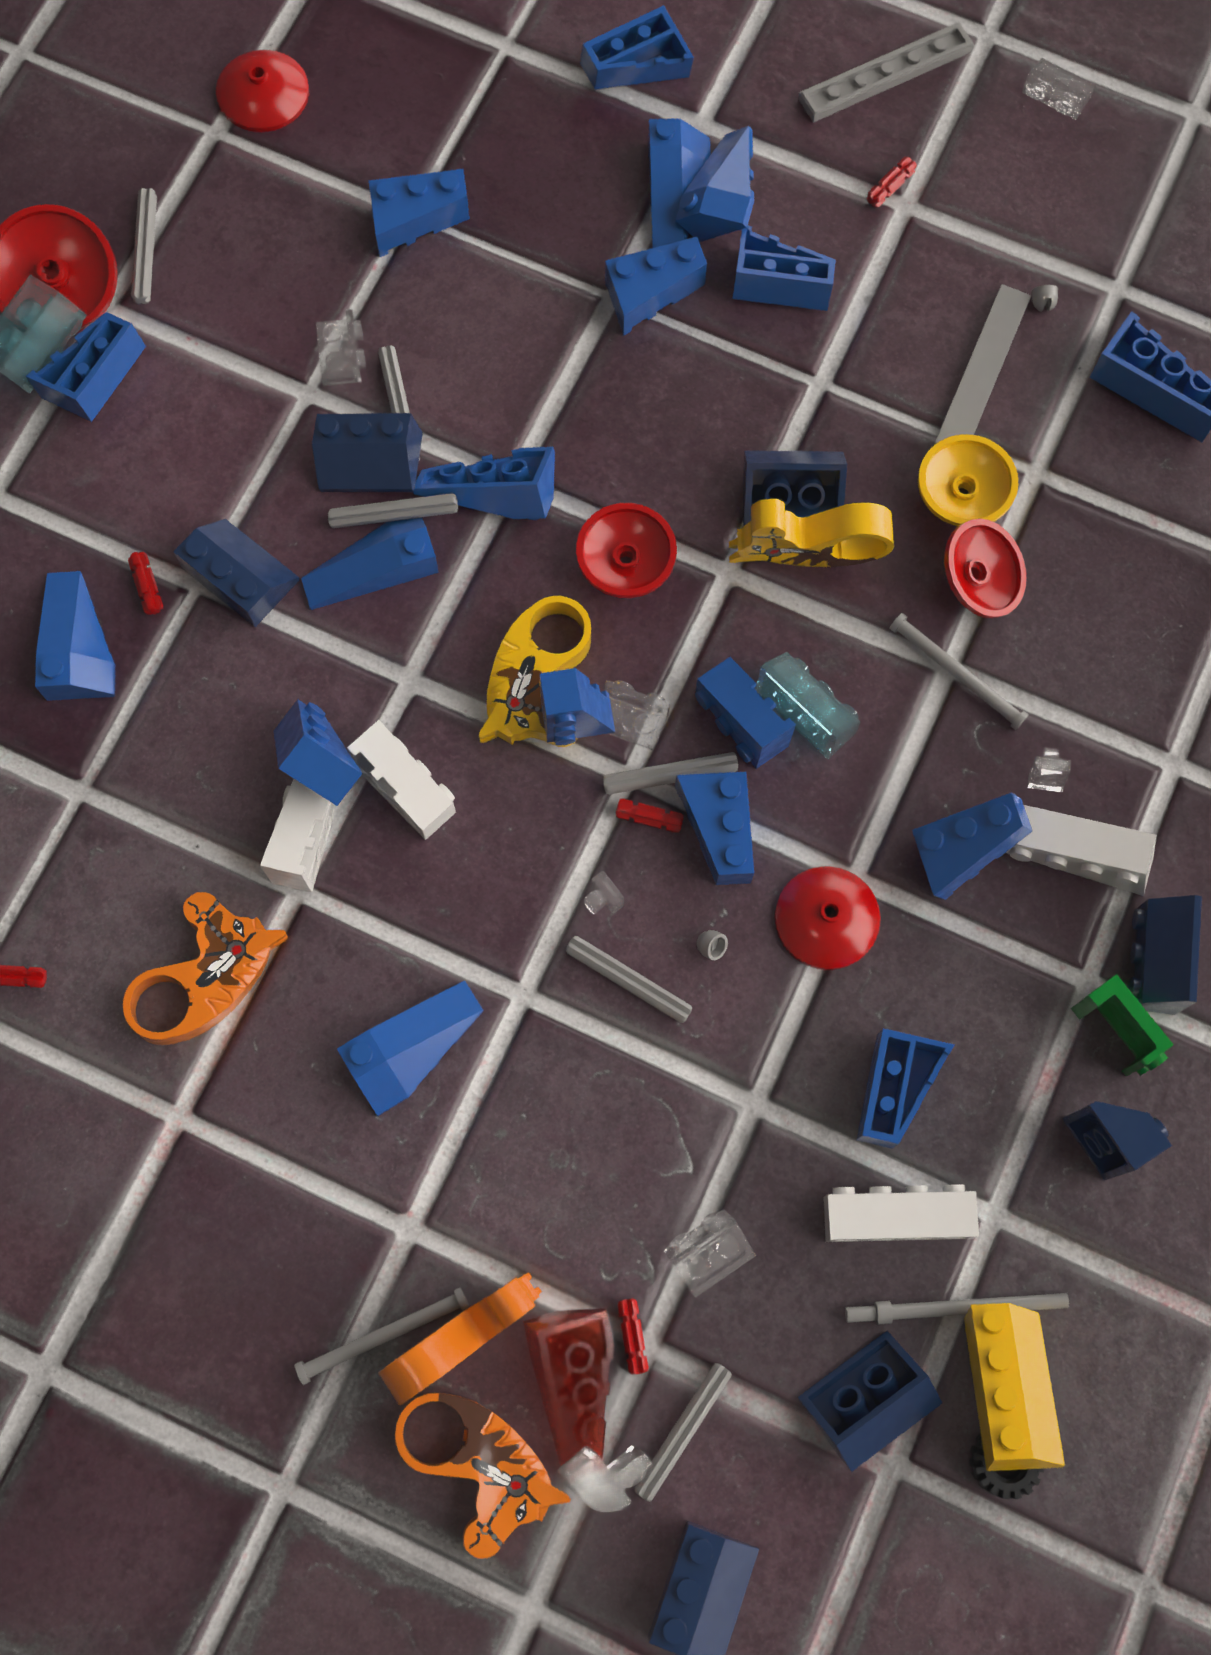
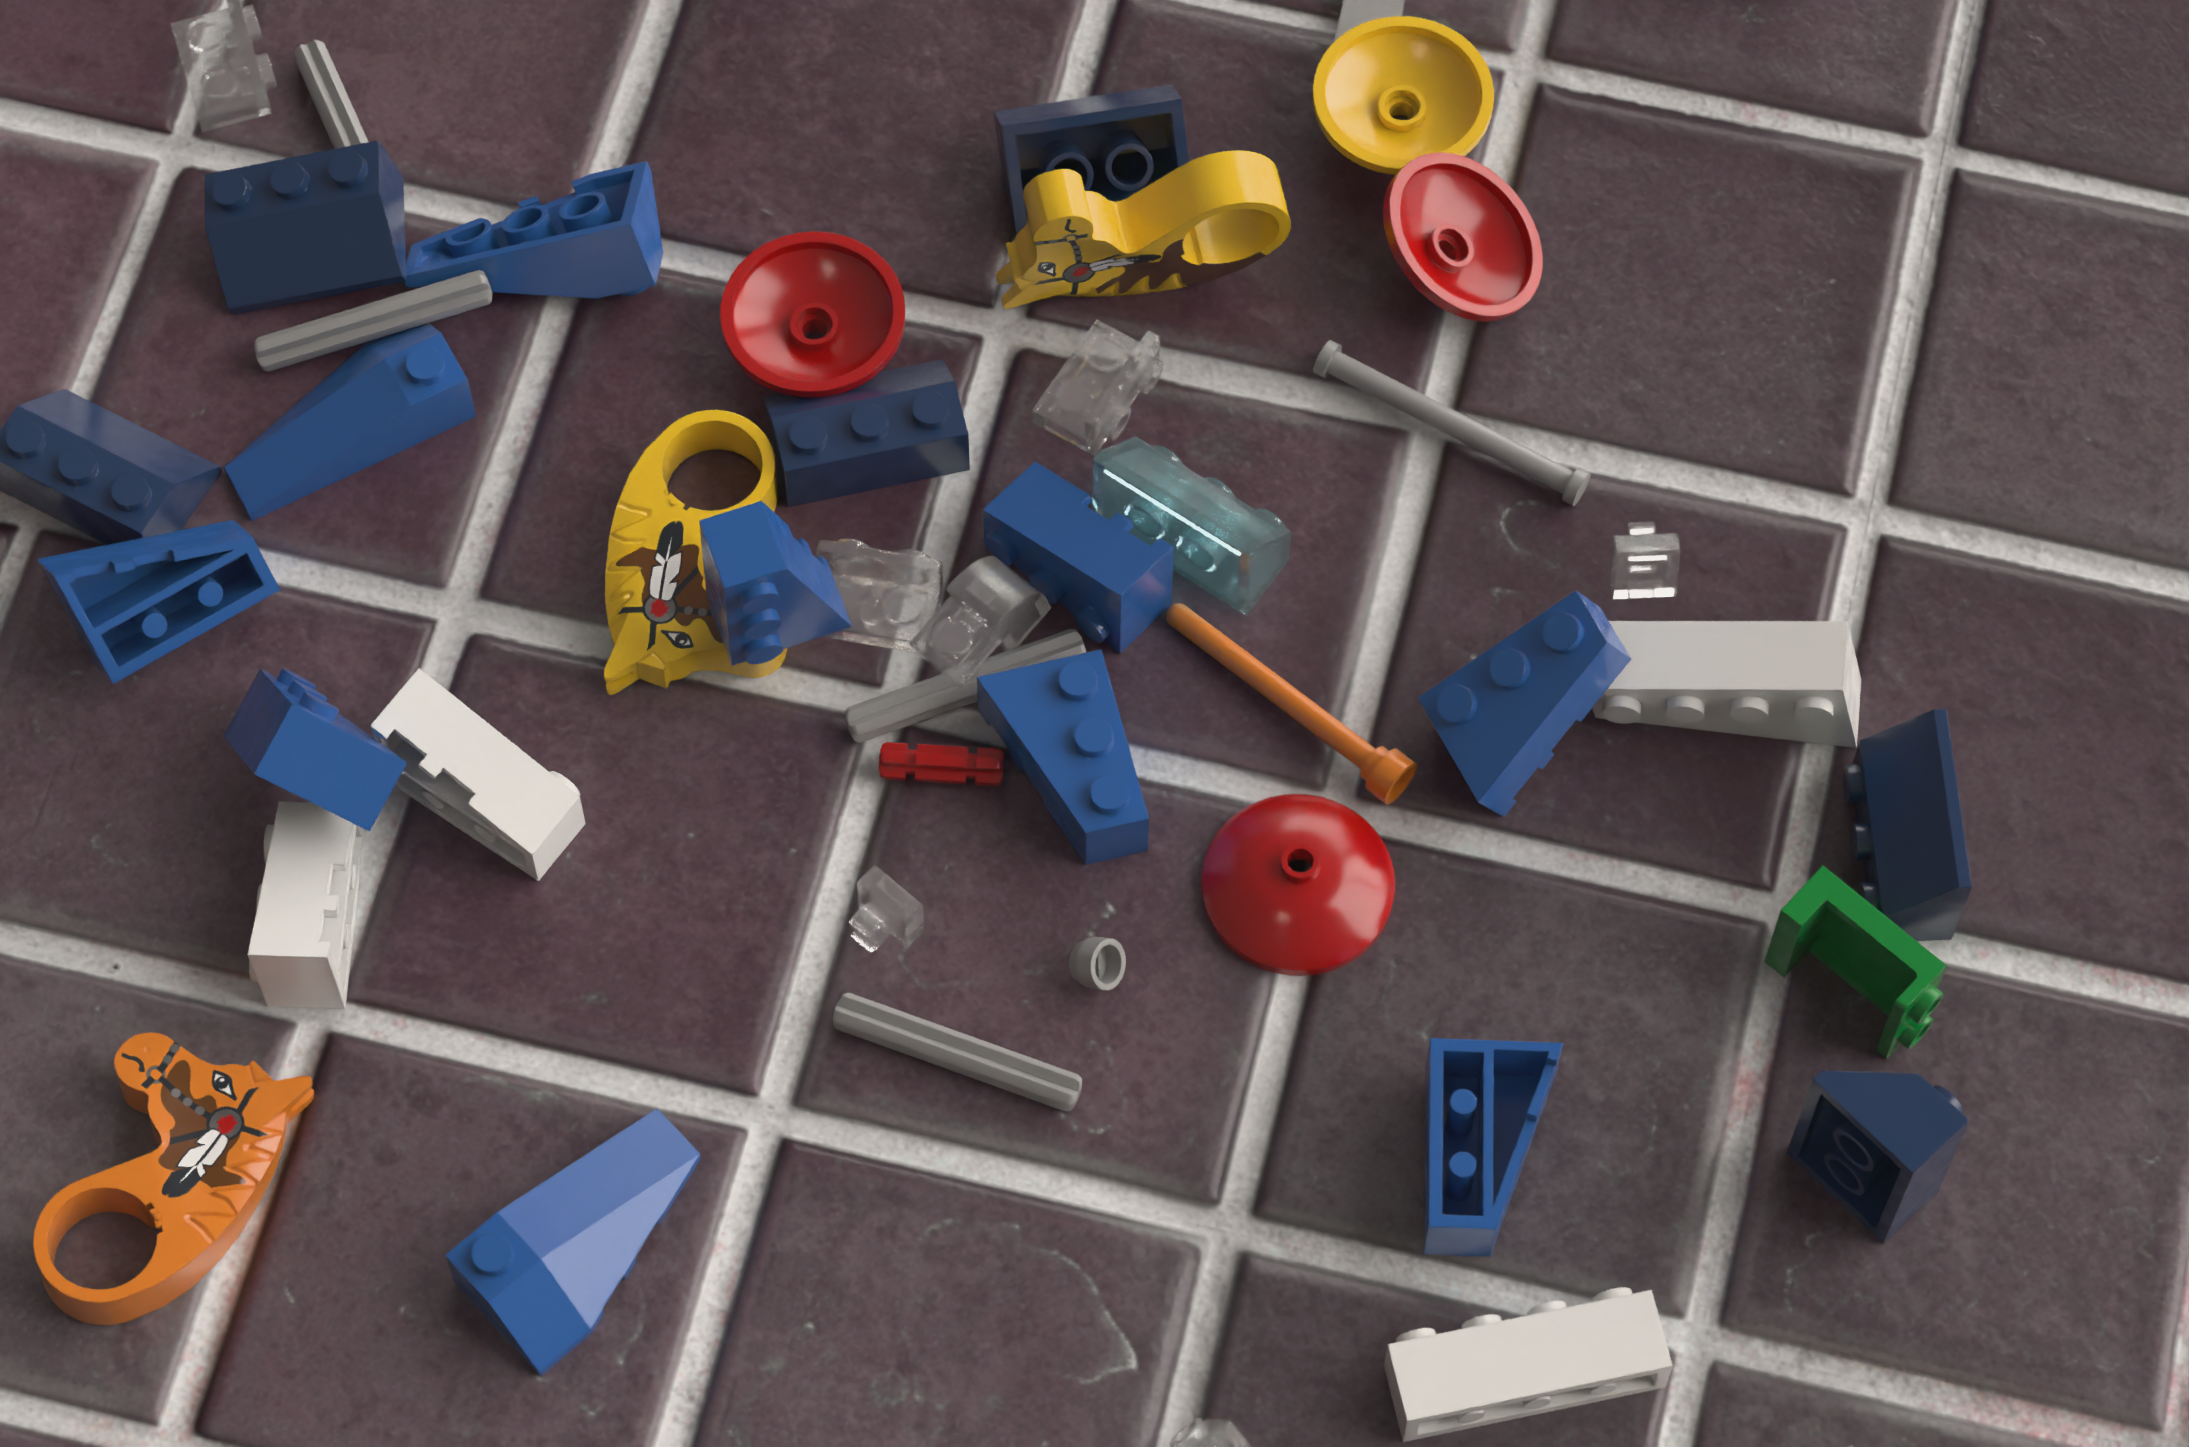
camera: 10 degrees left, 10 degrees down
(251, 645) = (157, 591): none -> blue wedge
(645, 623) = (873, 437): none -> dark blue slope
(687, 736) = (984, 610): none -> clear brick
(771, 616) = (1097, 387): none -> clear bracket
(884, 863) = (1384, 771): none -> orange piece

